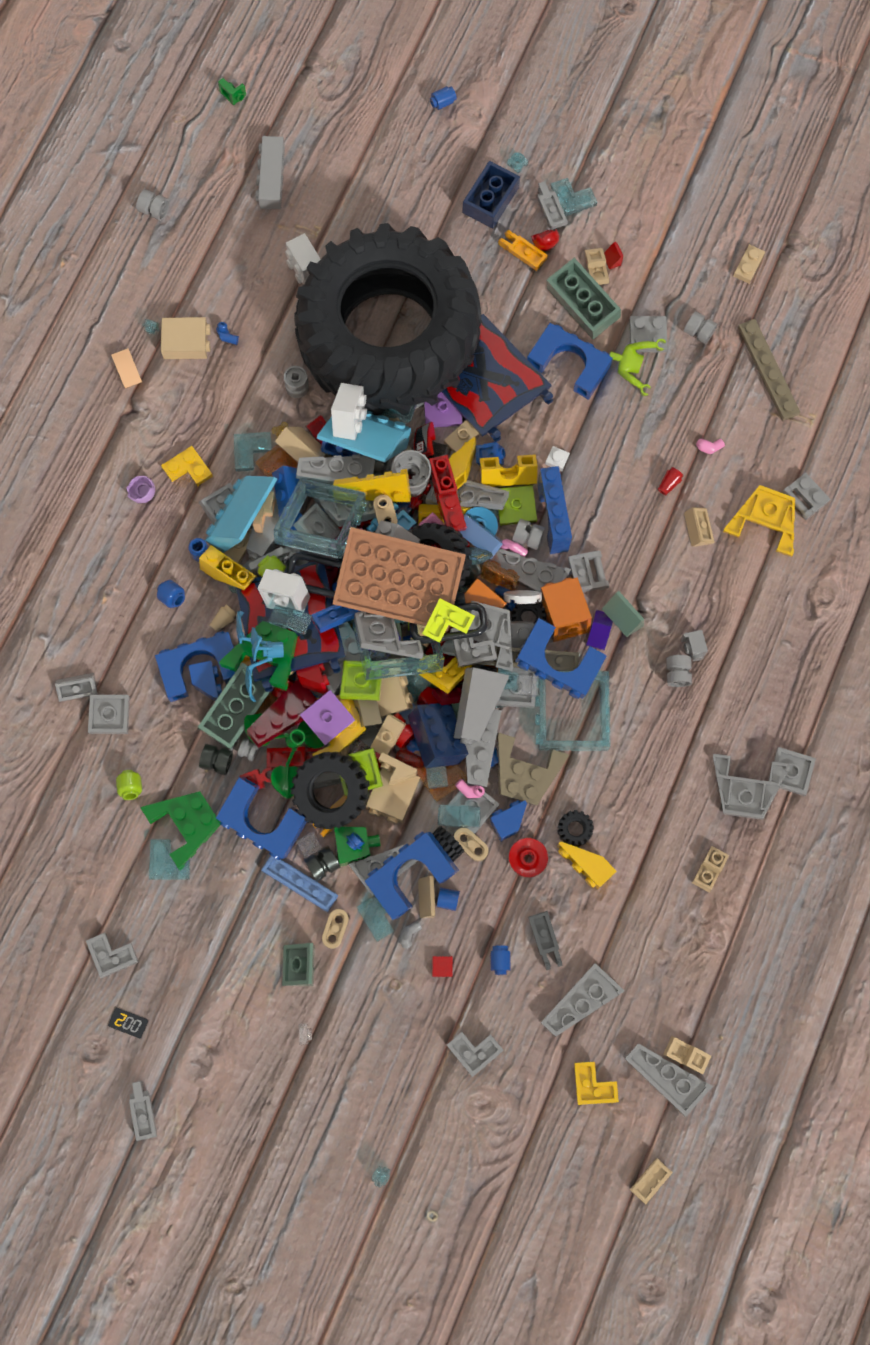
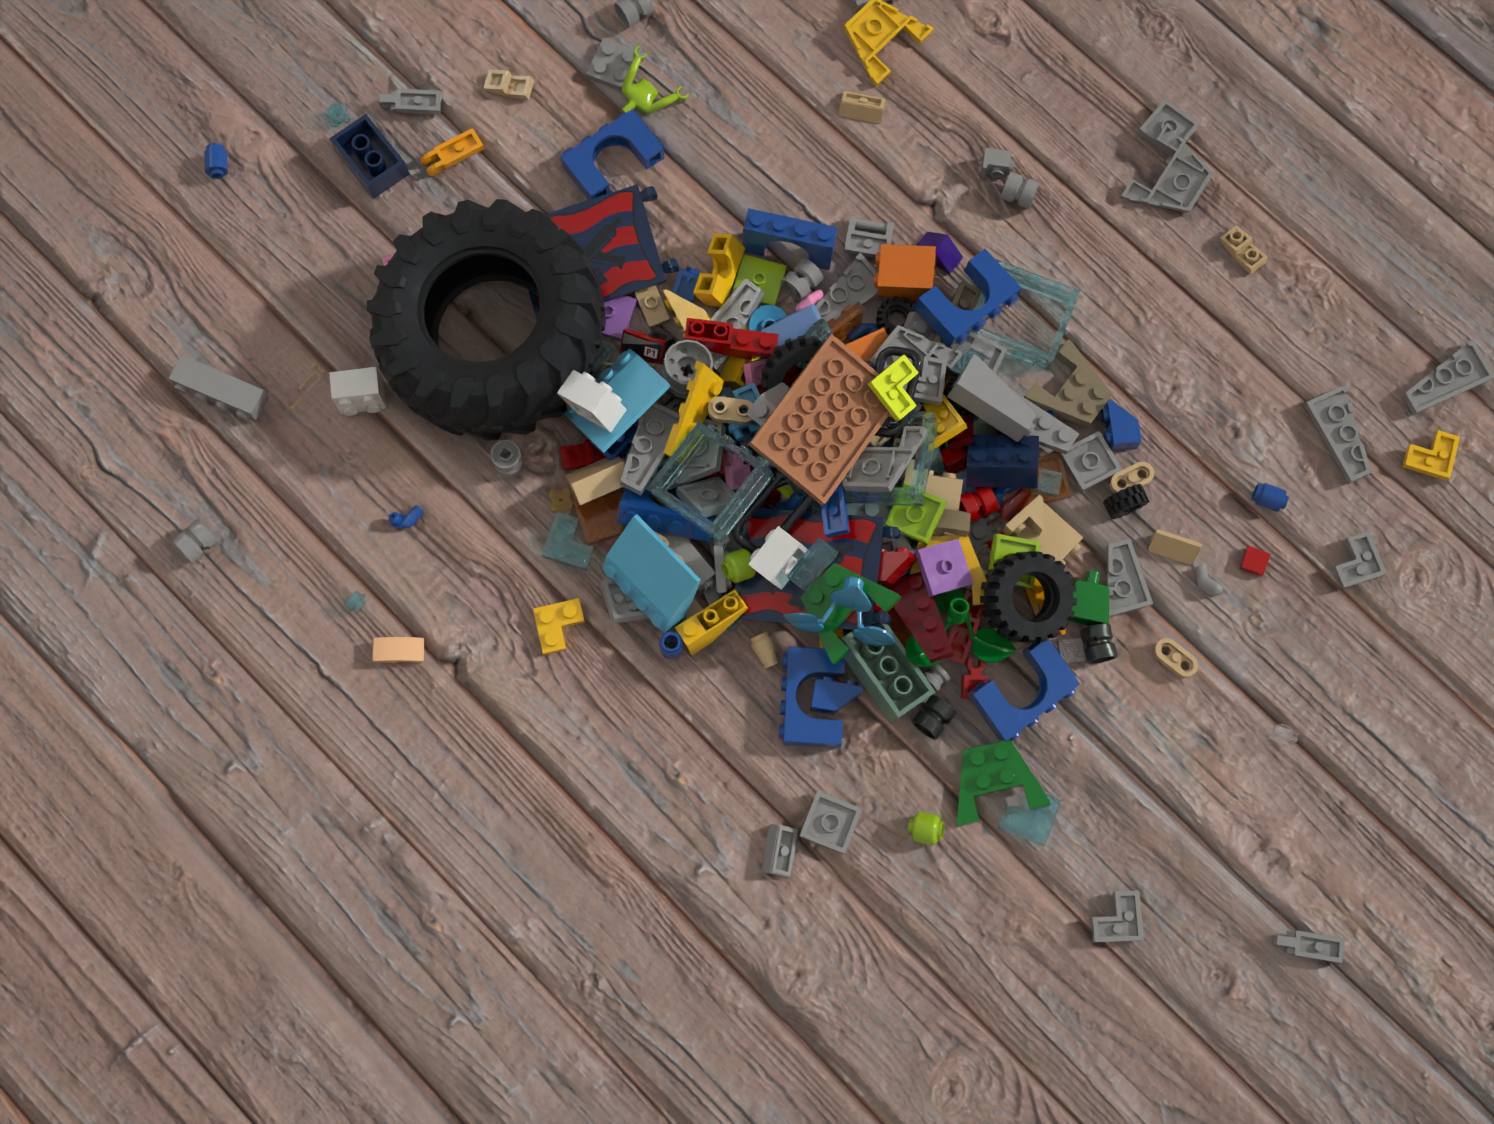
camera: 70 degrees left, 0 degrees up
(128, 1023) = (1201, 928): black sticker -> none
(141, 489) = (565, 686): lavender hair -> none
(170, 594) = (711, 698): blue head -> none
(185, 338) = (391, 566): tan brick -> none
(231, 93) = (85, 397): green bracket -> none
(298, 964) = (1203, 711): sand green slope -> none
(300, 883) = (1108, 678): medium blue tile -> none
(355, 841) = (1092, 595): blue plate -> none
(374, 917) = (1169, 610): clear light blue plate -> none
(381, 1176) = (1462, 709): clear light blue plate -> none
(384, 881) = (1133, 522): blue arch -> none
(388, 735) = (983, 514): tan plate -> none
(448, 899) = (1183, 524): blue brick -> none
(458, 816) = (1099, 476): clear light blue slope -> none
(470, 791) = (1075, 454): bright pink arm -> none
(523, 596) = (878, 308): white tile -> none
(529, 847) = (1175, 417): red dish -> none
(545, 938) = (1261, 442): dark grey hinge -> none
(546, 240) = (452, 121): red hair -> none
(557, 458) = (721, 217): white plate -> none
(571, 201) = (416, 77): clear light blue plate -> none
(583, 298) = (545, 111): sand green brick -> none
(583, 820) = (1161, 355): black tyre -> none
(592, 866) = (1203, 362): yellow slope -> none
(613, 256) = (505, 60): red slope -> none
(623, 614) = (936, 217): sand green slope -> none
(670, 481) = (798, 111): red cone -> none
(687, 1055) = (1430, 352): tan slope -> none
(709, 447) = (775, 58): bright pink arm -> none

